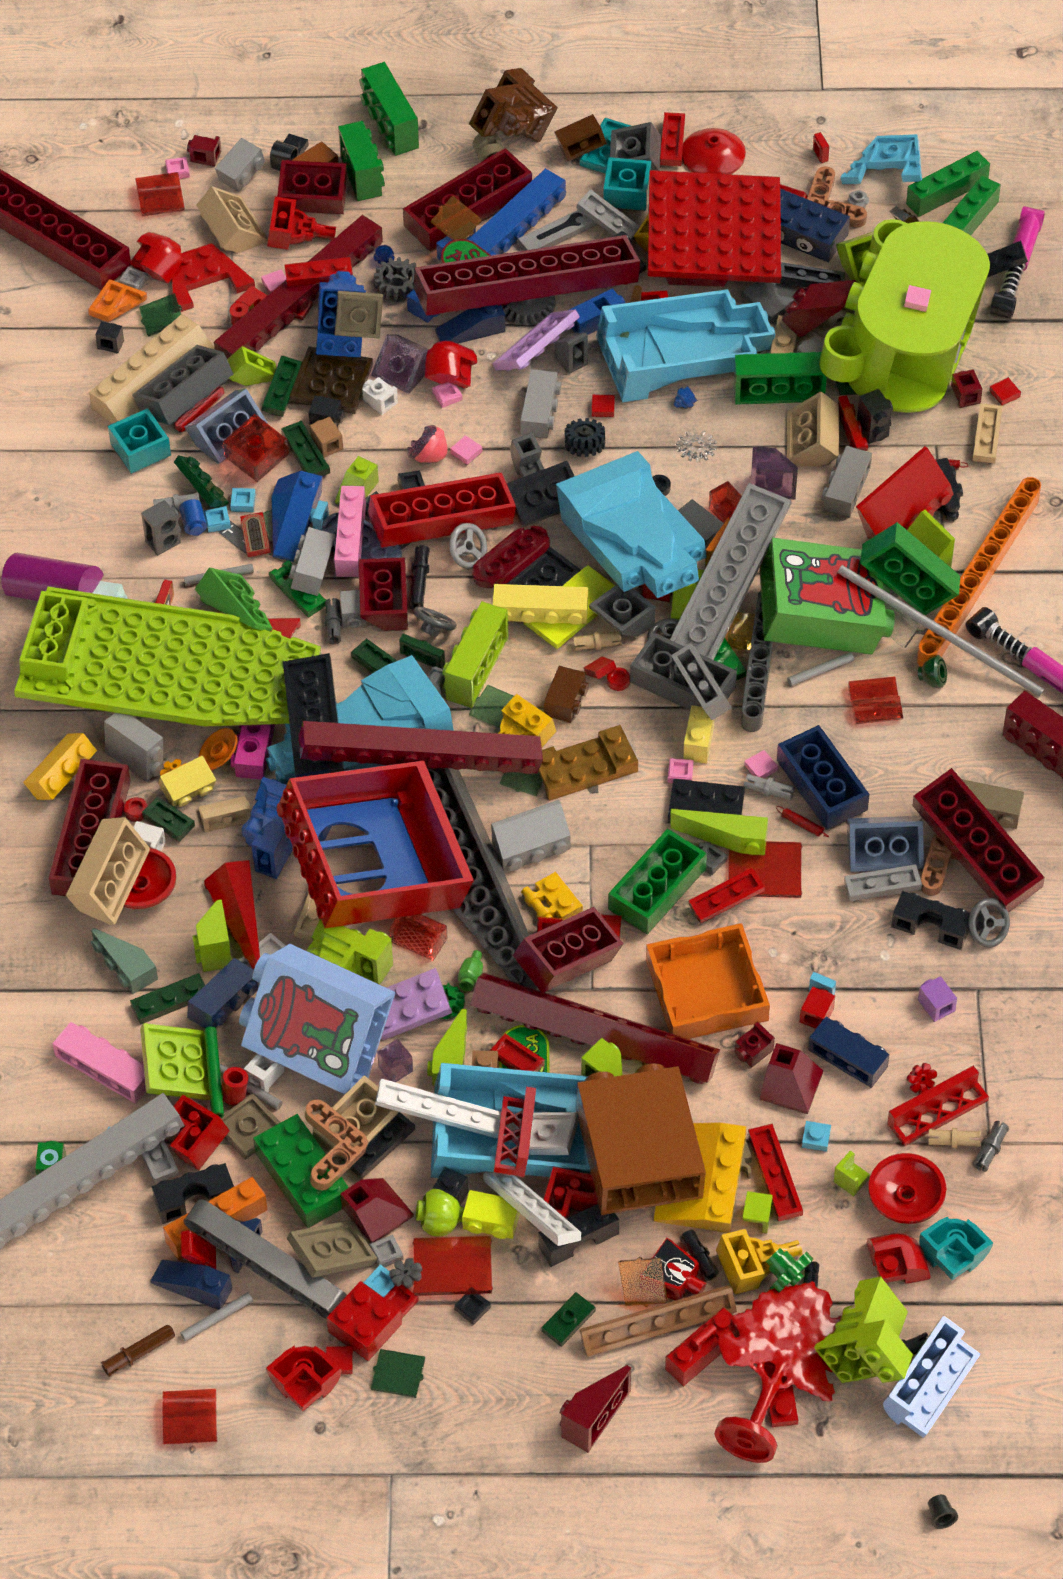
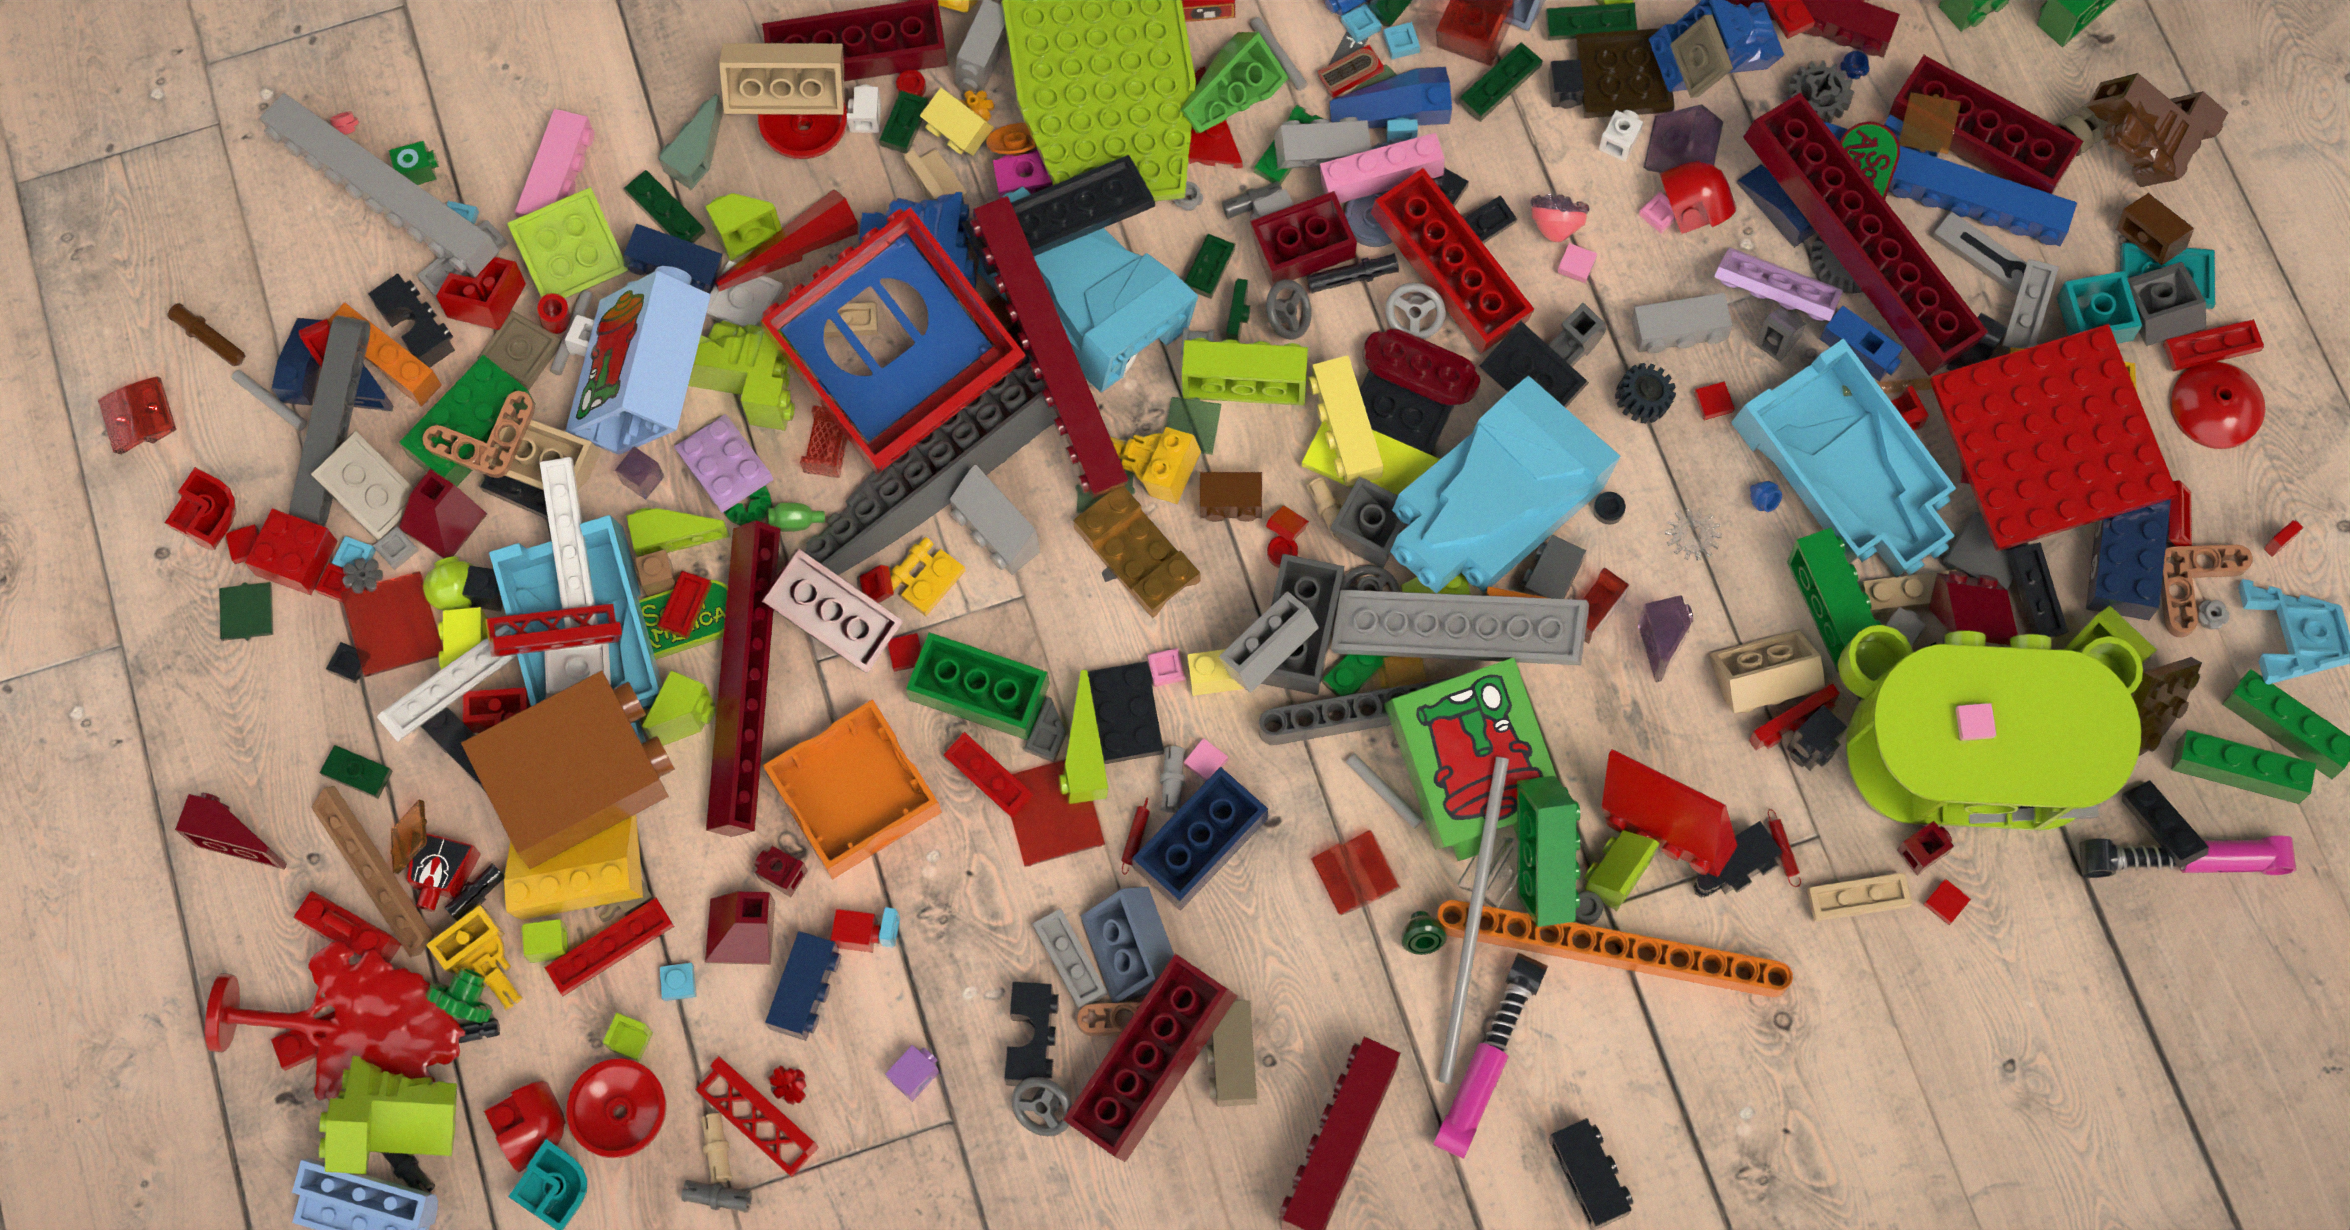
camera: 75 degrees right, 15 degrees up
(214, 1074) = (567, 285): green piece -> none
(326, 436) = (1529, 96): medium nougat brick -> none
(360, 473) = (1471, 155): lime slope -> none
(847, 481) = (1701, 736): light grey brick -> none

